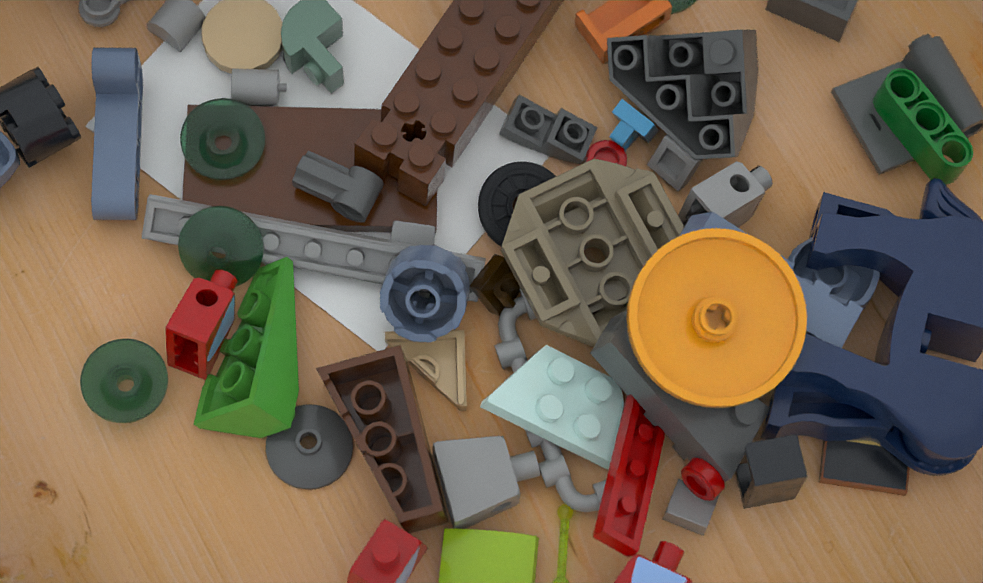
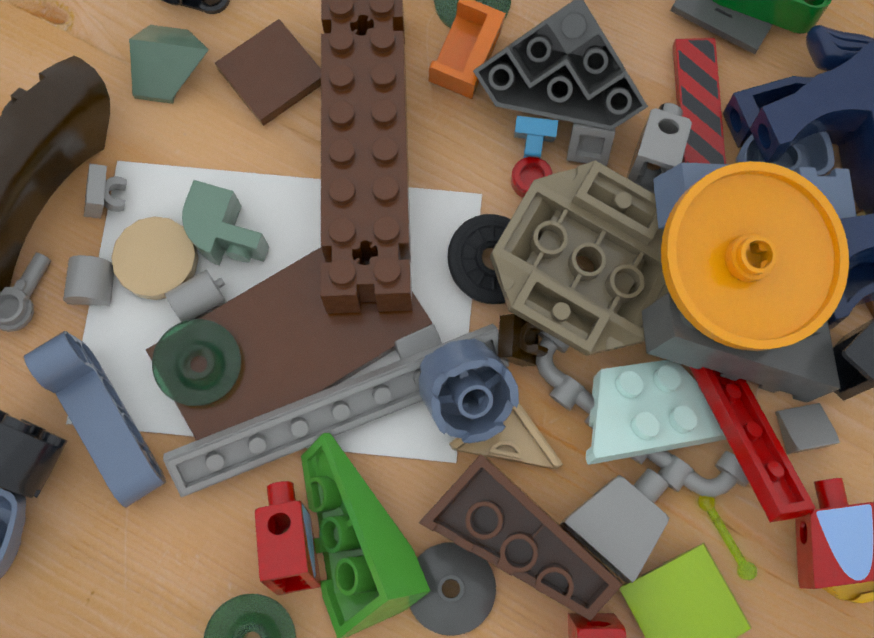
camera: 25 degrees left, 5 degrees up
(224, 229) = (253, 446): clear green dish -> none
(348, 190) = (339, 339): dark grey piece -> none
(548, 133) = (475, 181): dark grey slope -> none
(702, 479) = (807, 401): red tile -> none
(798, 186) = (700, 99): none -> tile

